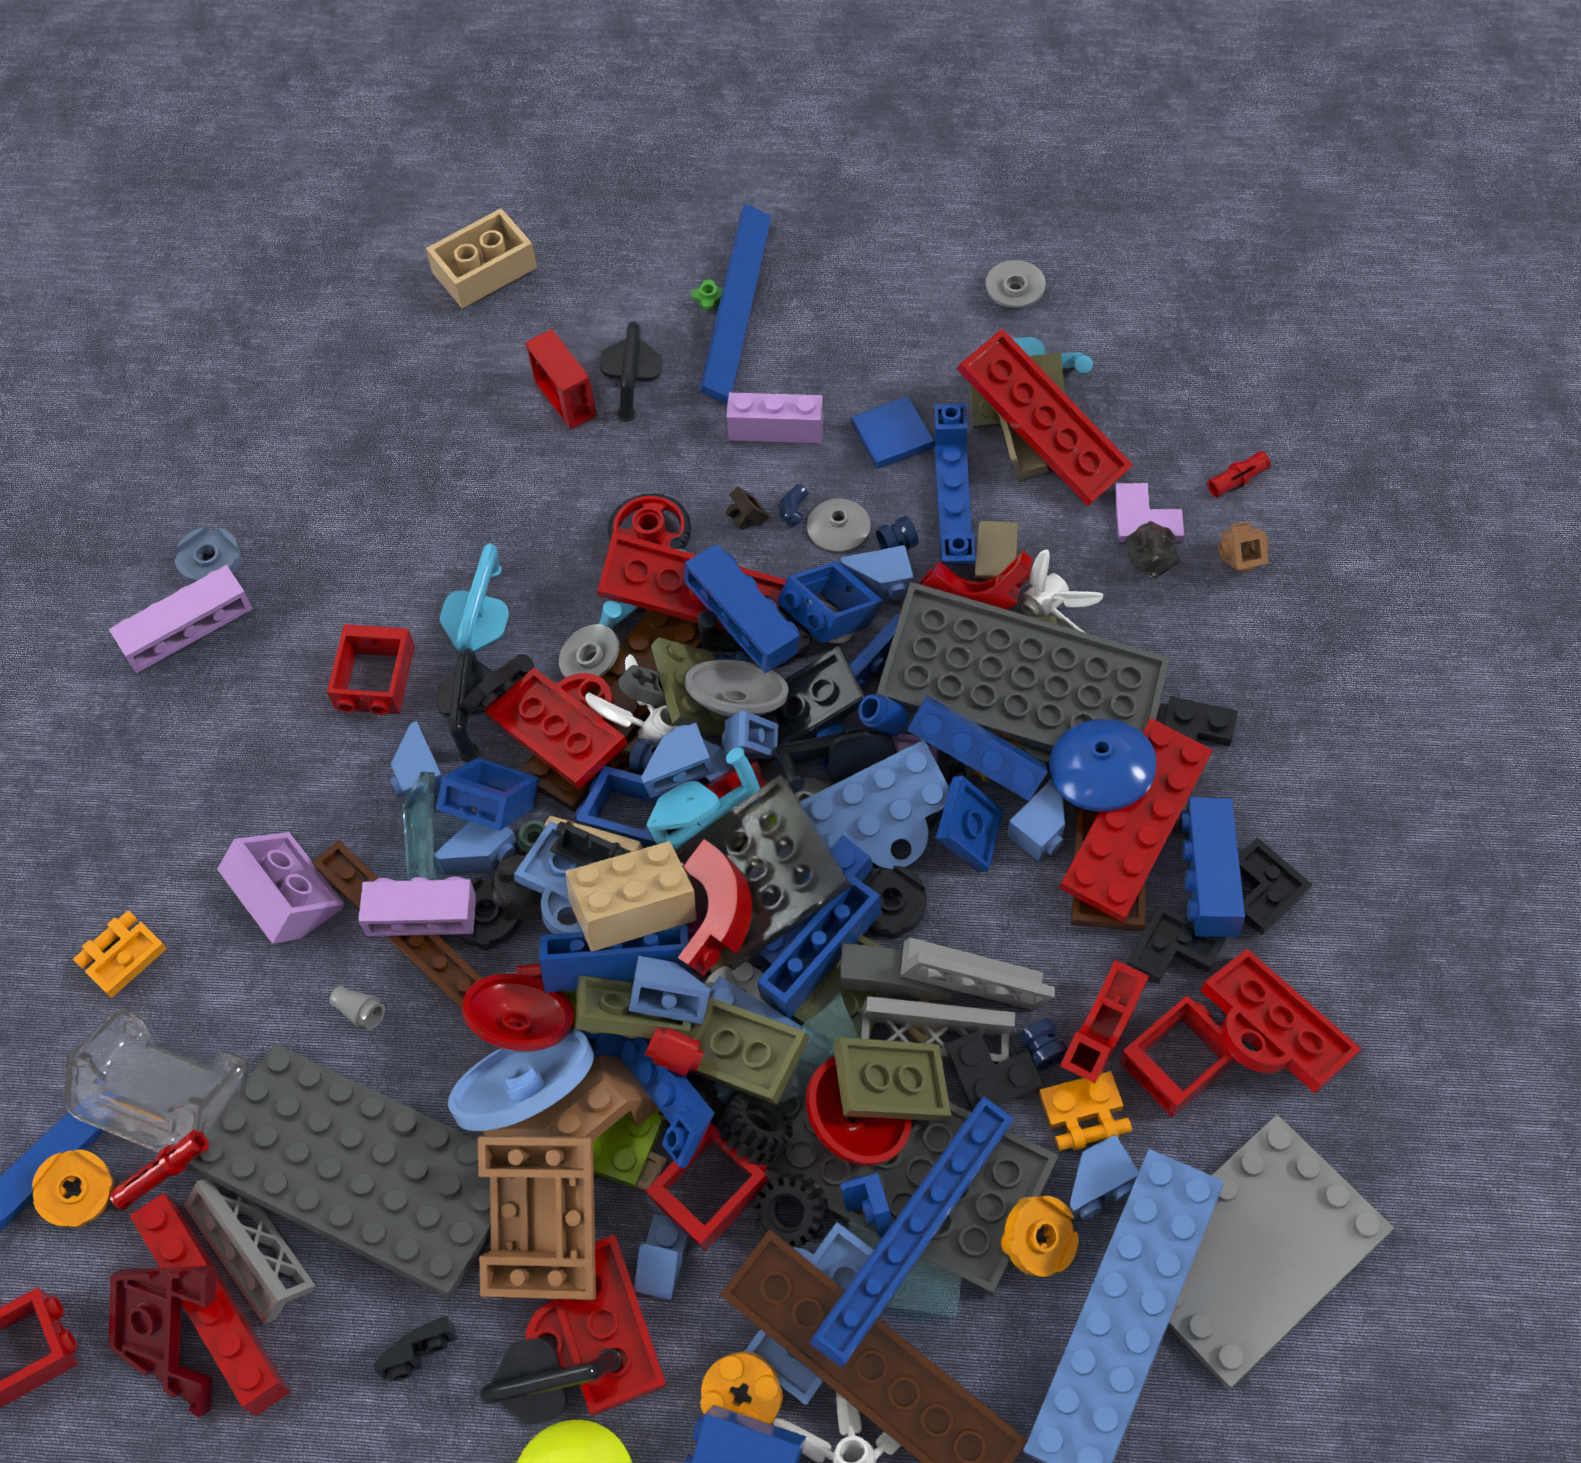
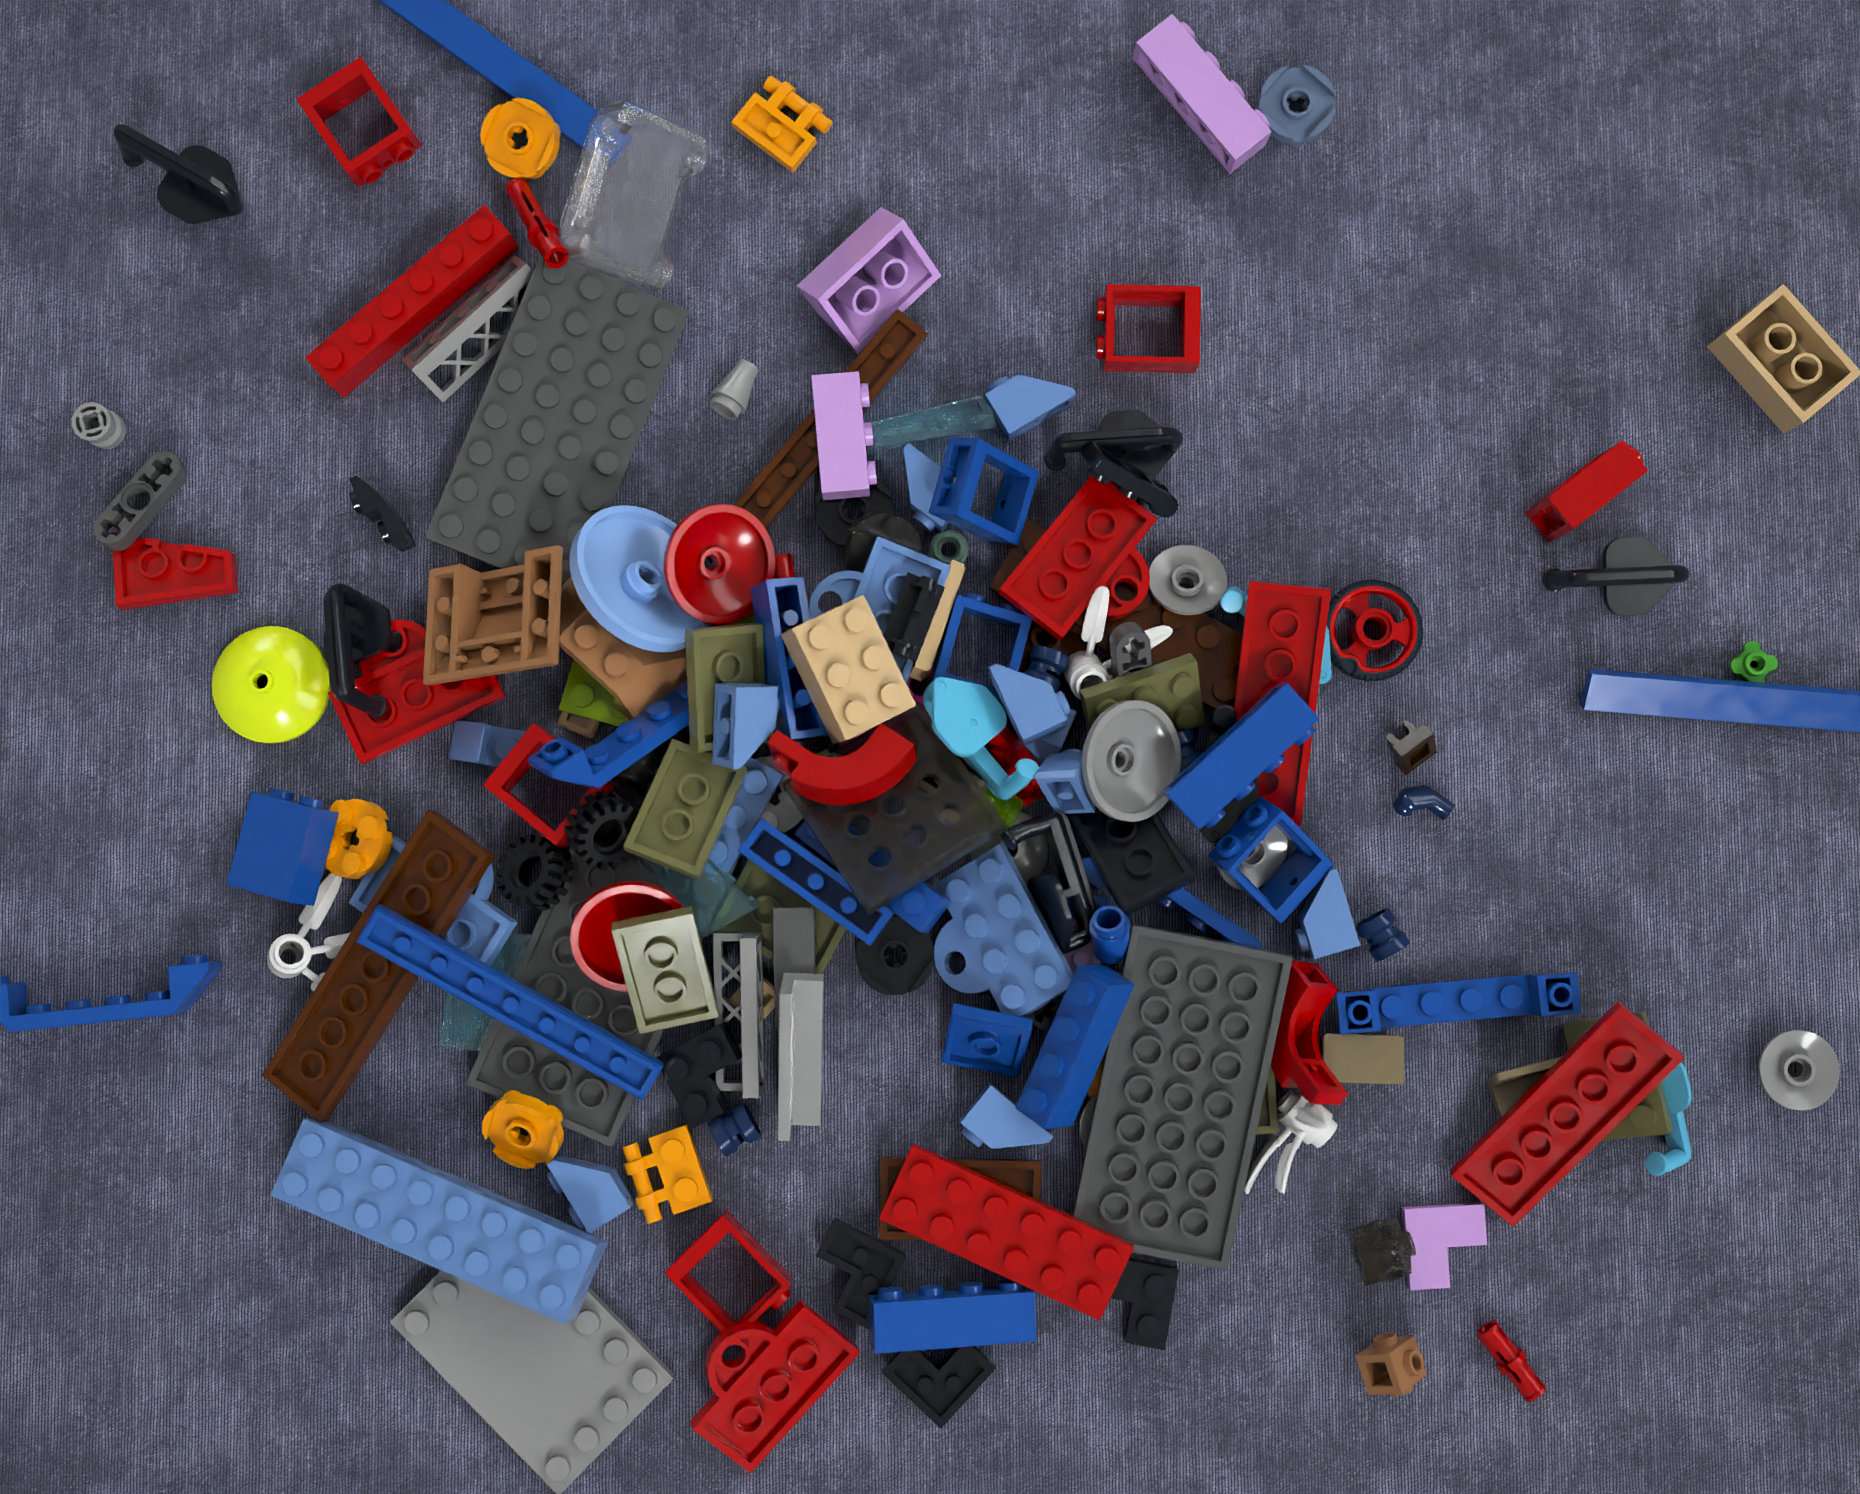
camera: 80 degrees right, 25 degrees up
(148, 1324) = (384, 249): dark red wing -> none
(472, 617) = (1233, 435): medium azure piece -> none
(674, 1051) = (670, 737): red brick -> none
(775, 417) = (1551, 769): lavender brick -> none
(838, 535) = (1382, 865): light grey dish -> none
(868, 1194) = (533, 960): blue bracket -> none
(892, 432) = (1546, 919): blue tile -> none
(1102, 779) = (1034, 1192): blue dish -> none
(1106, 1022) = (754, 1192): red arch -> none

